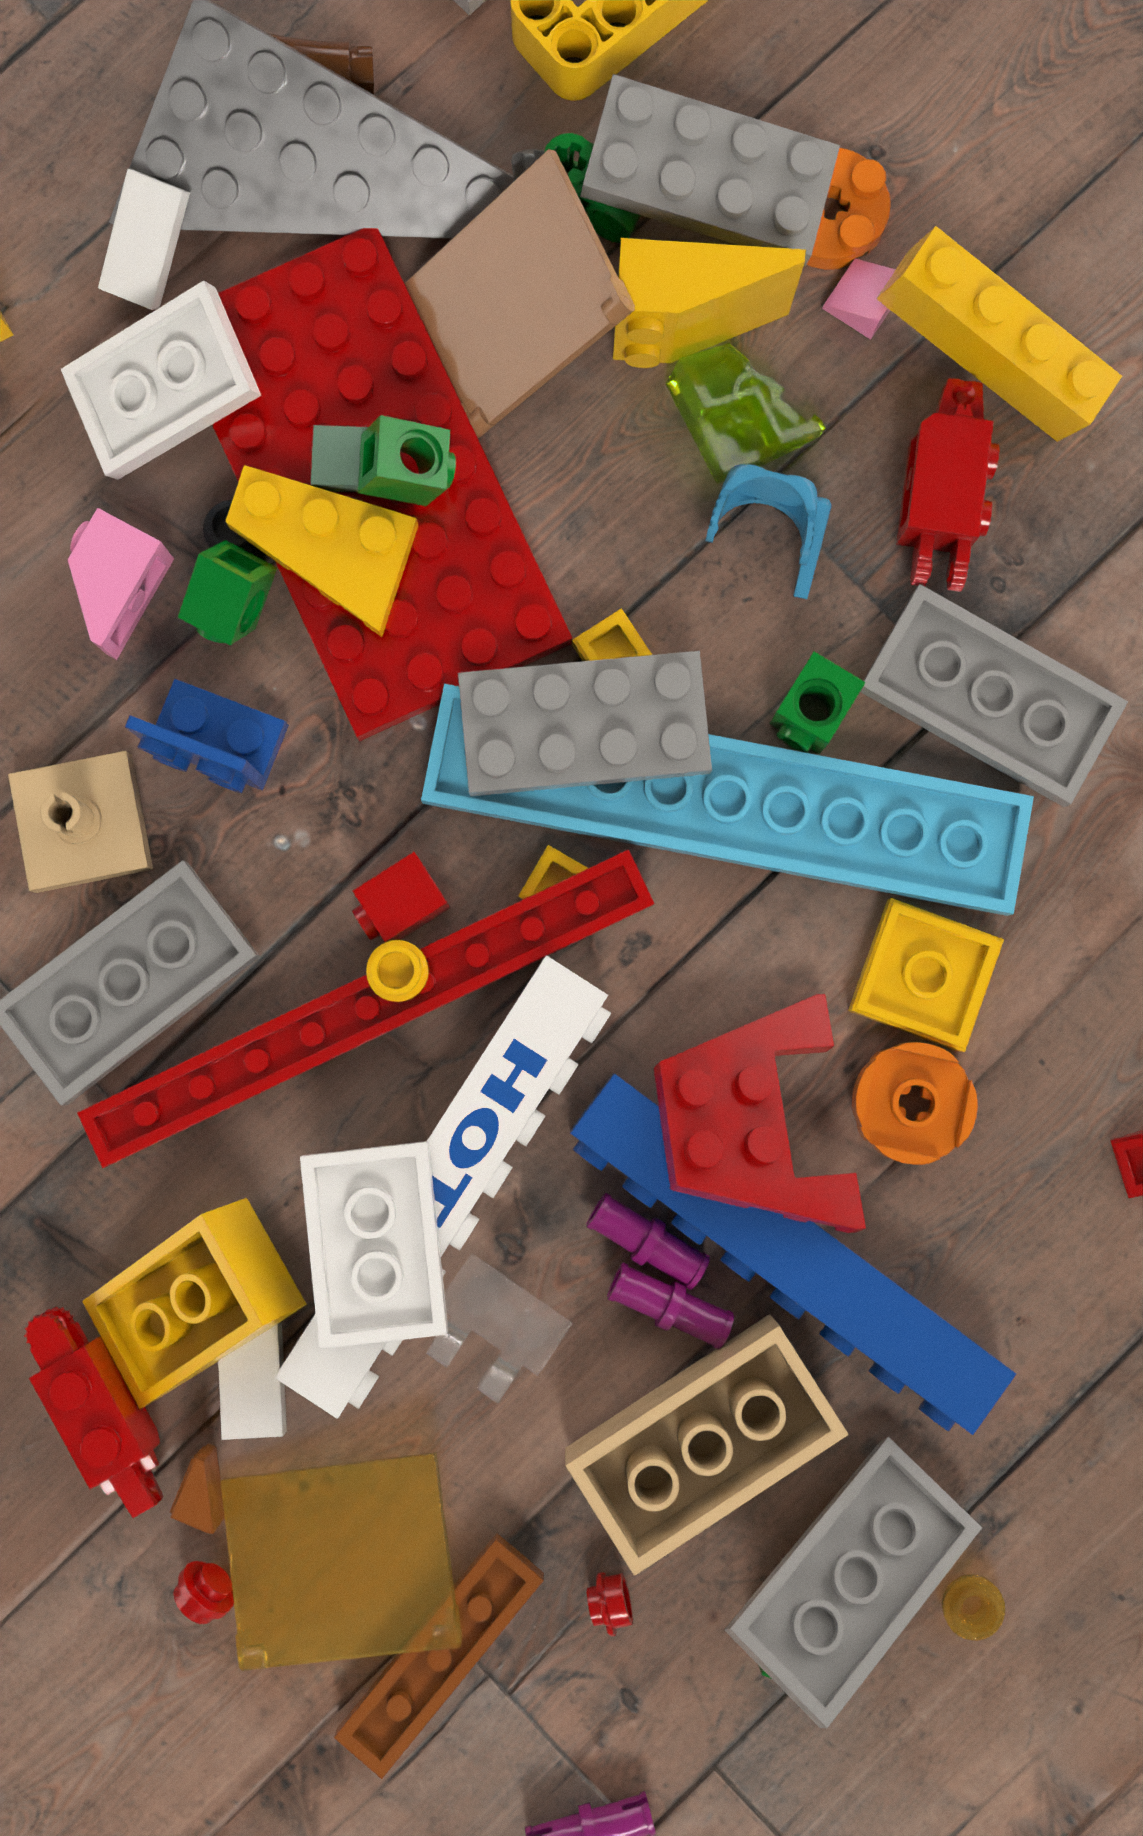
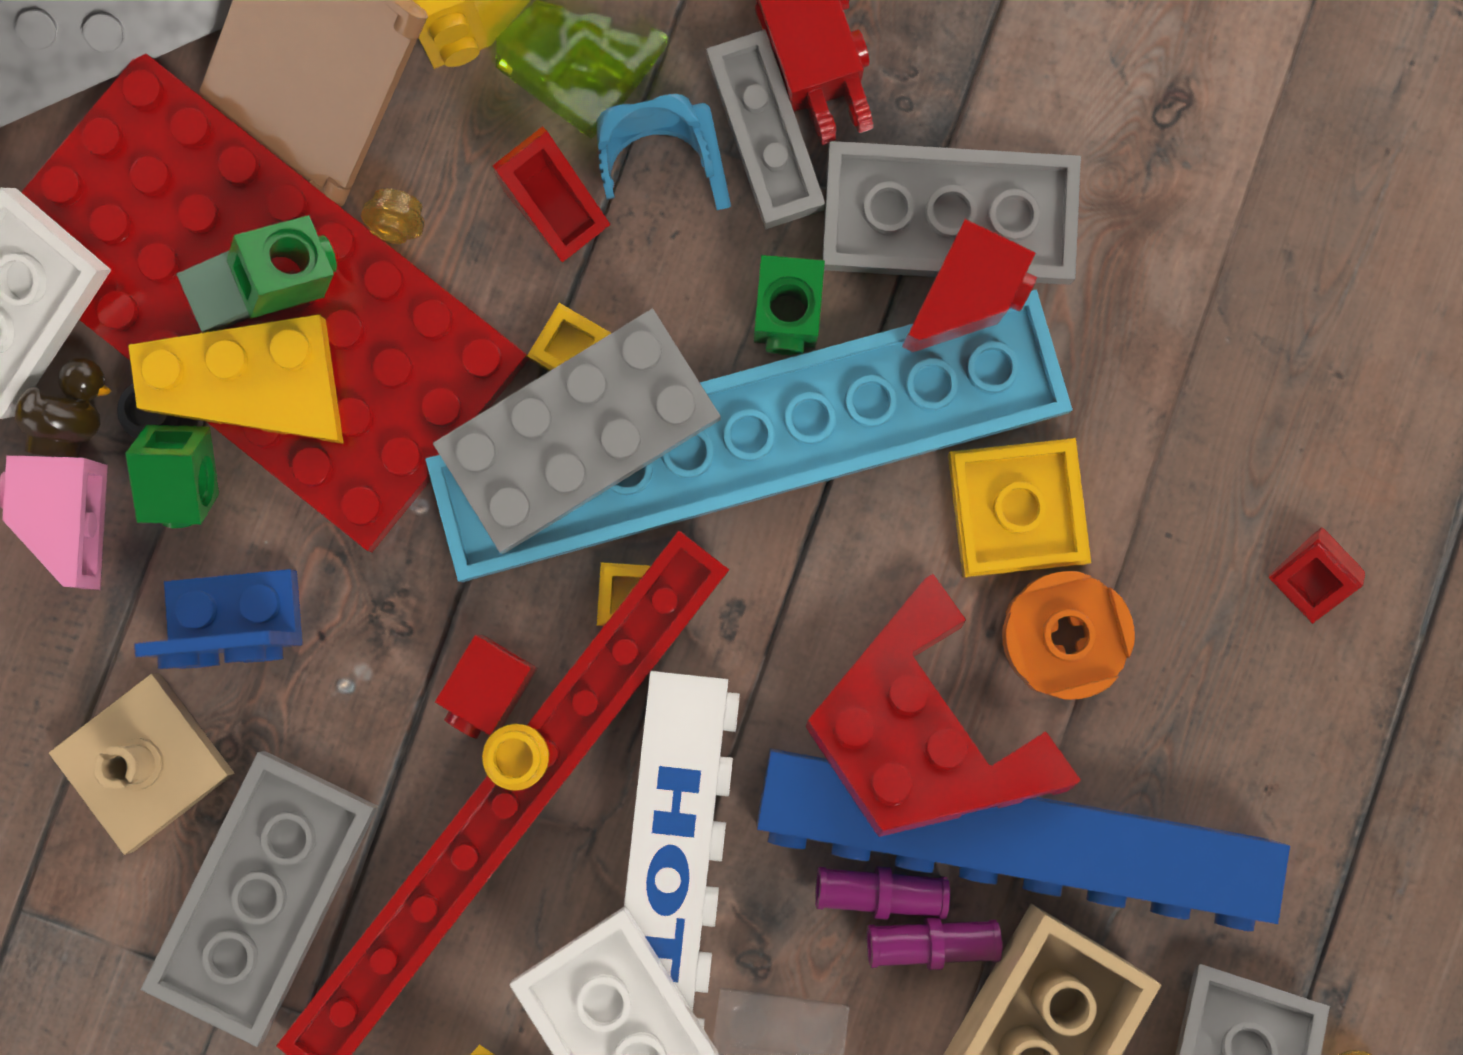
camera: 20 degrees left, 0 degrees up
(155, 505) = (61, 424): none -> dark brown animal
(518, 466) = (393, 216): none -> clear yellow plate
(659, 513) = (550, 194): none -> red slope
(869, 547) = (765, 129): none -> light grey plate
(981, 767) = (973, 287): none -> red slope

